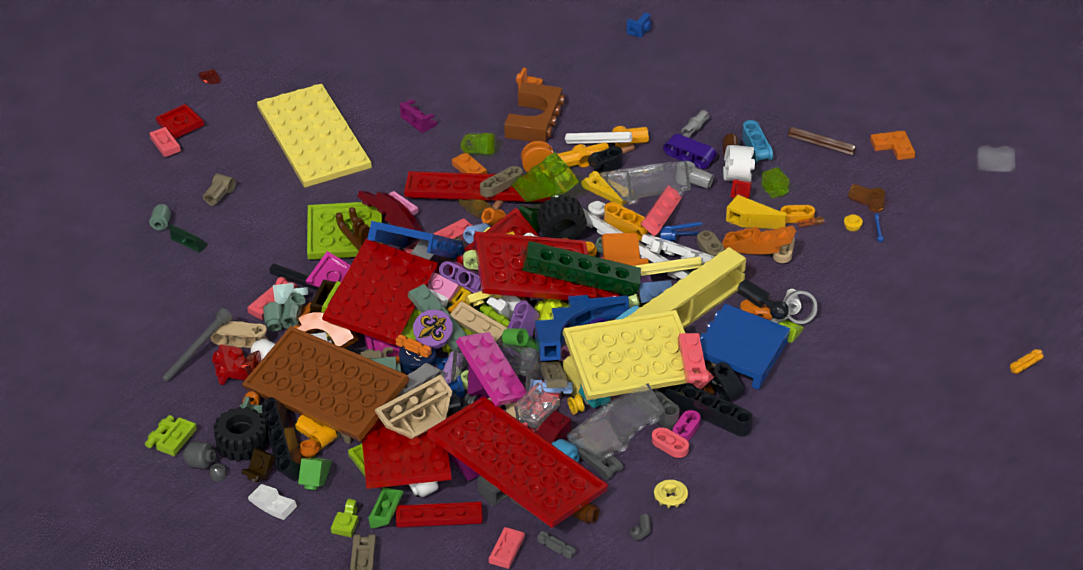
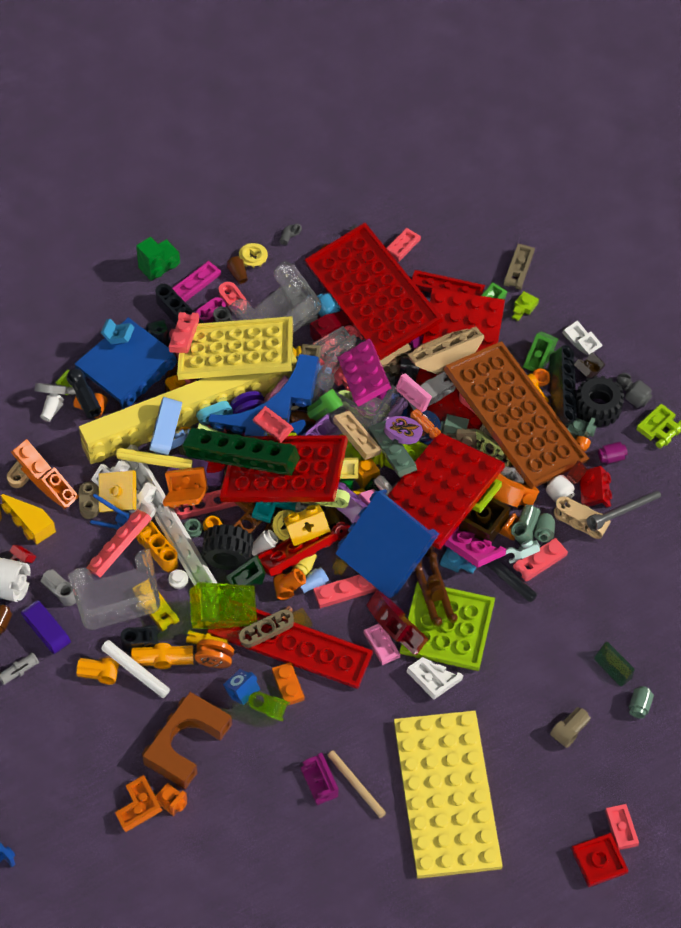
camera: 165 degrees left, 15 degrees up
(218, 396) = (612, 453): none -> magenta brick
(343, 192) = (433, 677): none -> white wing
(388, 123) = (356, 784): none -> tan bar
(434, 359) = (413, 392): none -> bright pink plate
(505, 147) = (241, 686): none -> blue brick
(551, 70) = (143, 806): none -> orange plate
(561, 295) = (273, 424): none -> coral plate
(664, 275) = (165, 426): none -> light blue beam
(679, 471) = (237, 269): none -> reddish brown cone
(685, 242) = (118, 489): none -> yellow plate
(719, 452) = (197, 281): none -> dark pink tile
(760, 350) = (117, 333): none -> dark azure bracket
(771, 450) = (156, 258): none -> green brick

